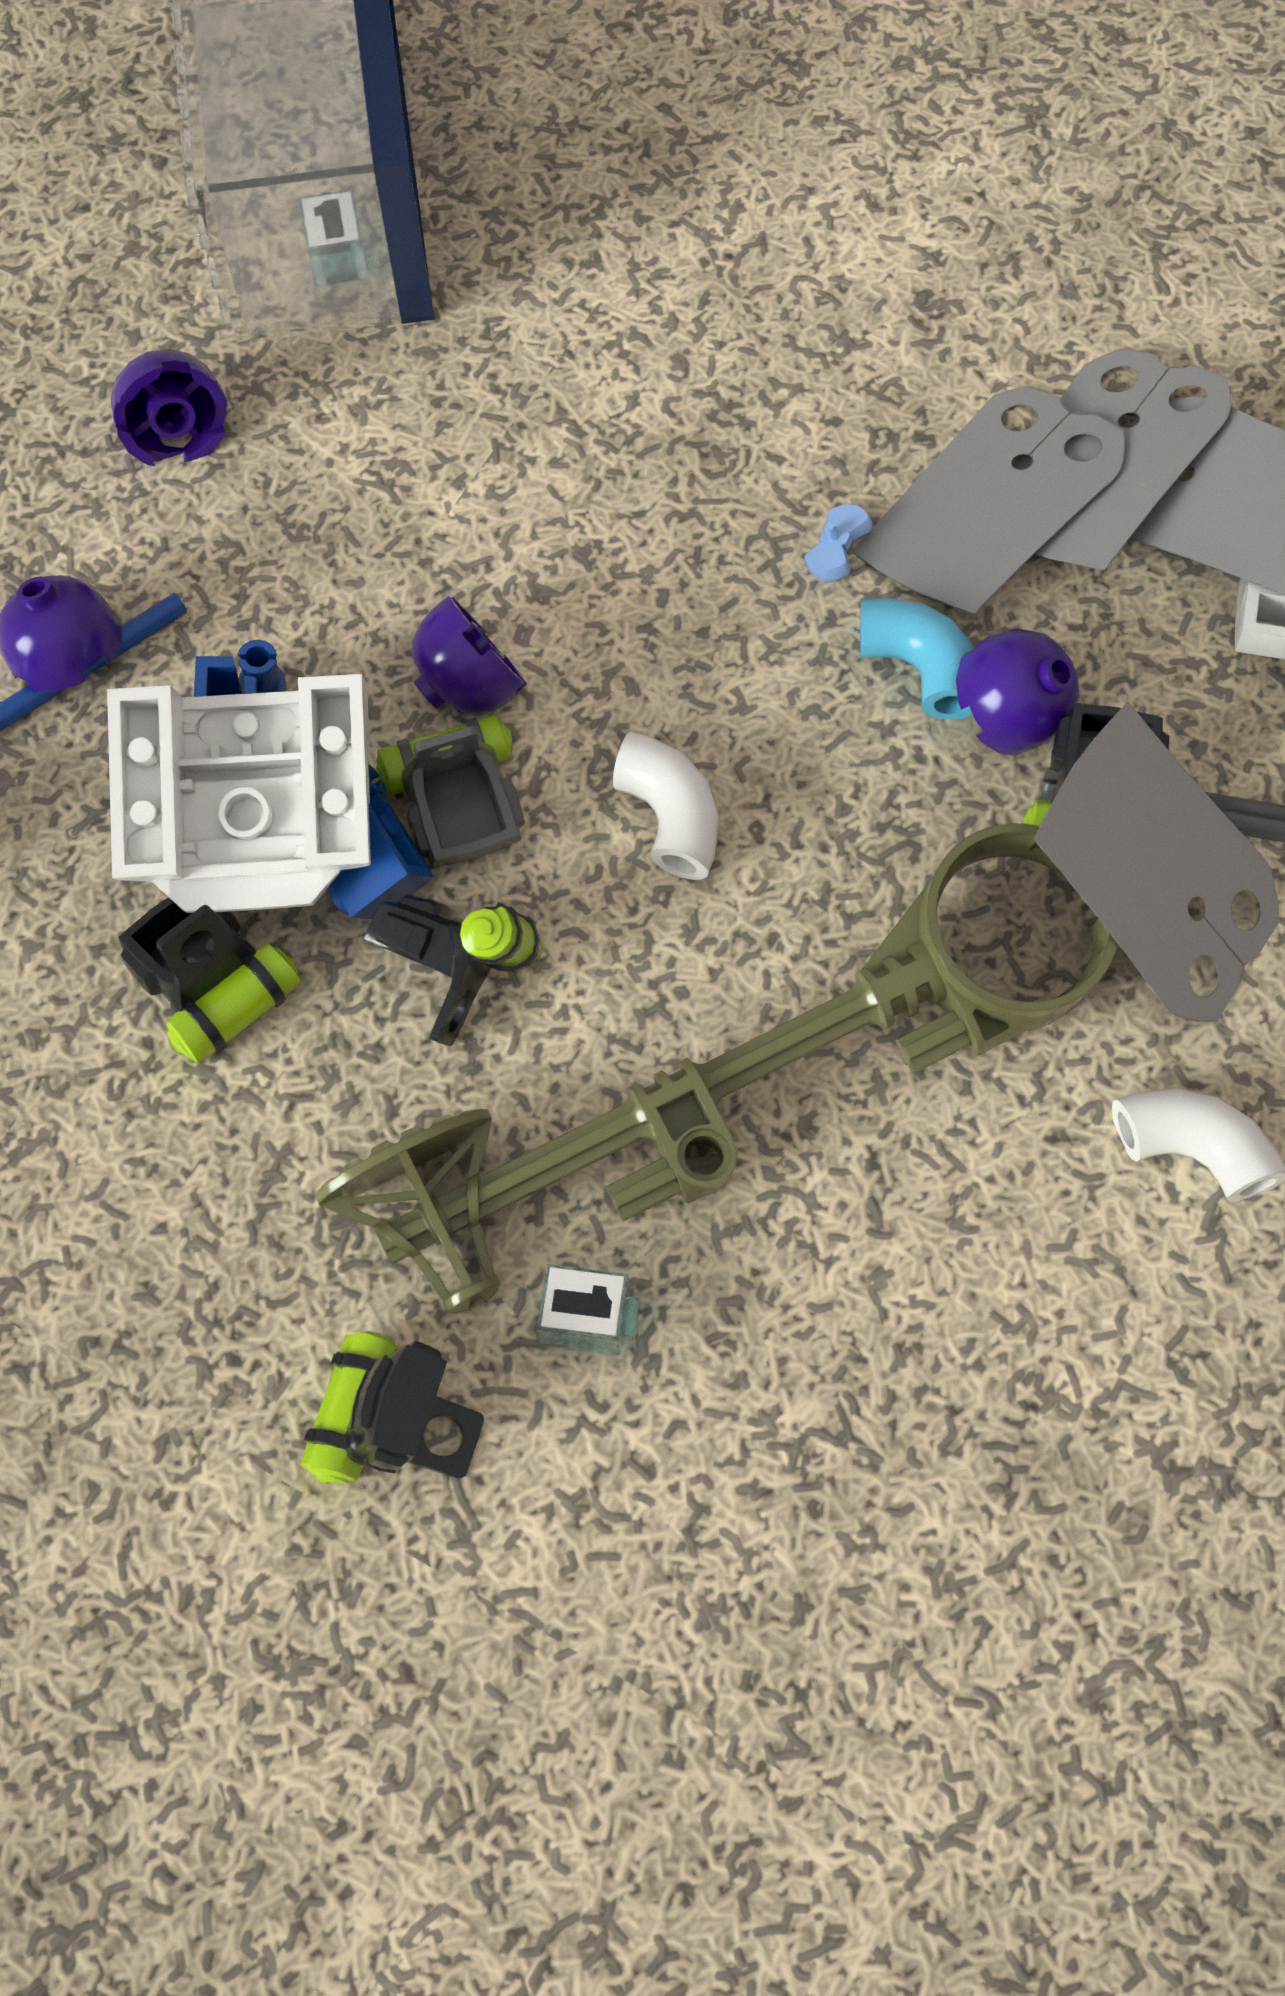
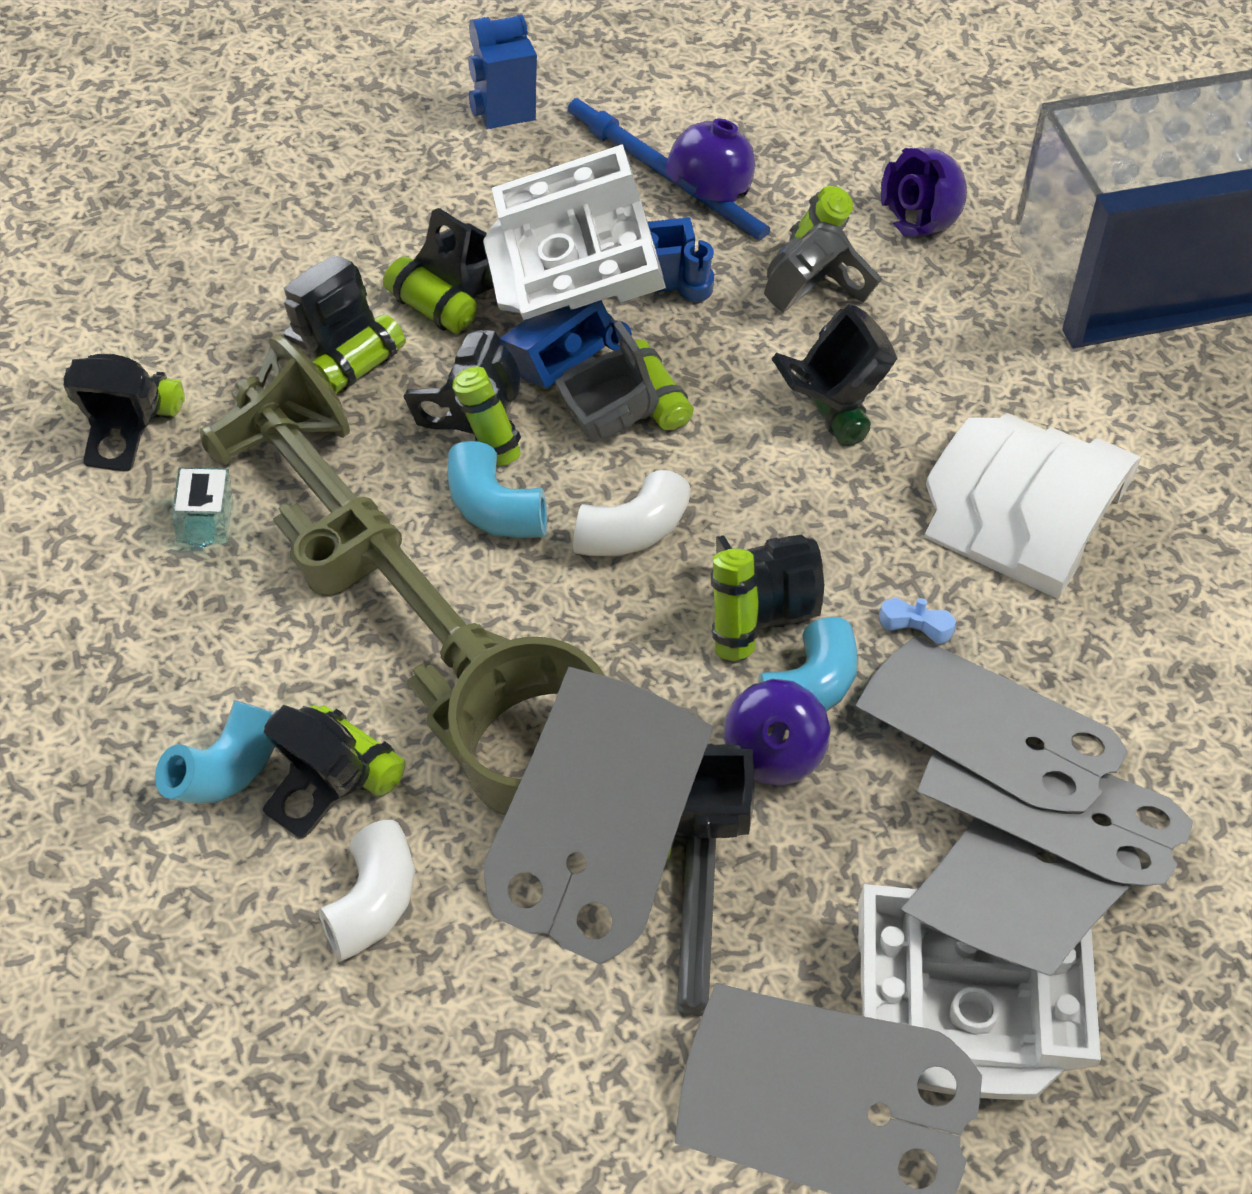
camera: 75 degrees right, 15 degrees down
(264, 537) = (818, 251): none -> dark grey piece
(295, 1115) = (335, 322): none -> black piece
(461, 662) = (734, 374): dark purple cylinder -> none
(488, 531) = (842, 371): none -> black piece
(620, 964) = (488, 503): none -> medium azure cylinder
(676, 396) = (1024, 497): none -> white slope
(809, 679) = (763, 589): none -> black piece
(1009, 1292) = (223, 768): none -> medium azure cylinder
(1021, 1168) = (331, 757): none -> black piece

